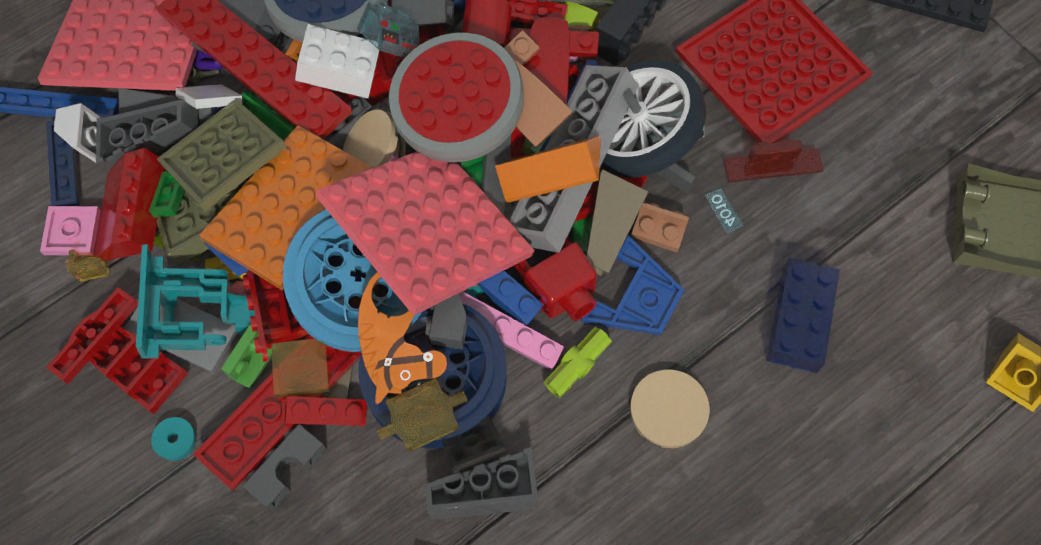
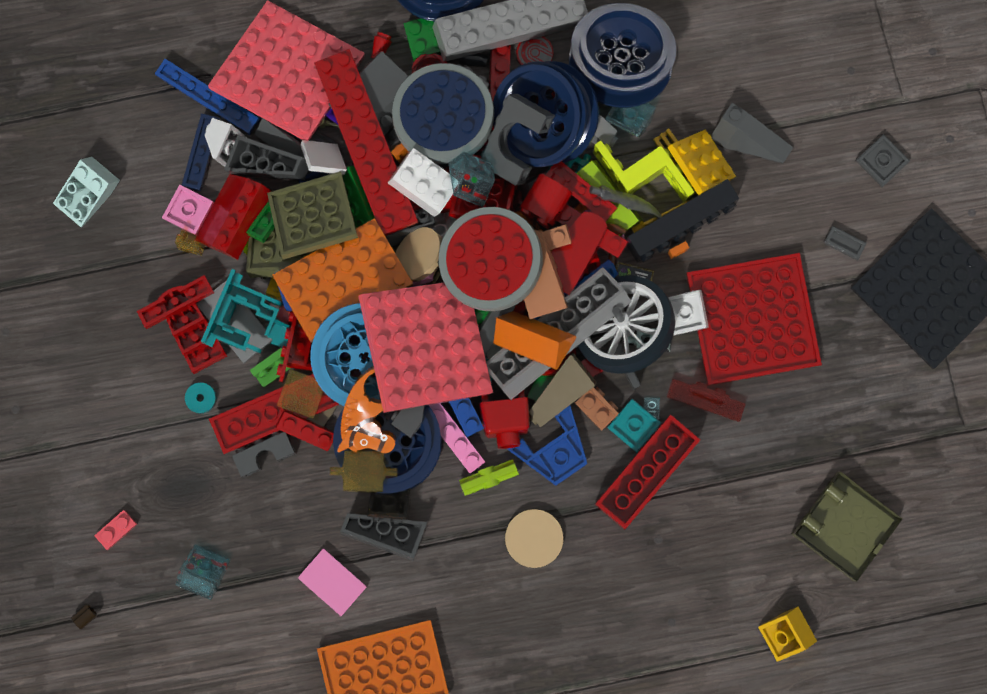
camera: 30 degrees right, 15 degrees up
(654, 31) = (678, 250): none -> orange tile
(709, 79) = (689, 312): none -> white tile
(711, 228) = (634, 425): none -> teal tile
(758, 268) = (647, 472): none -> red brick
(803, 315) = (659, 520): clear blue brick -> none

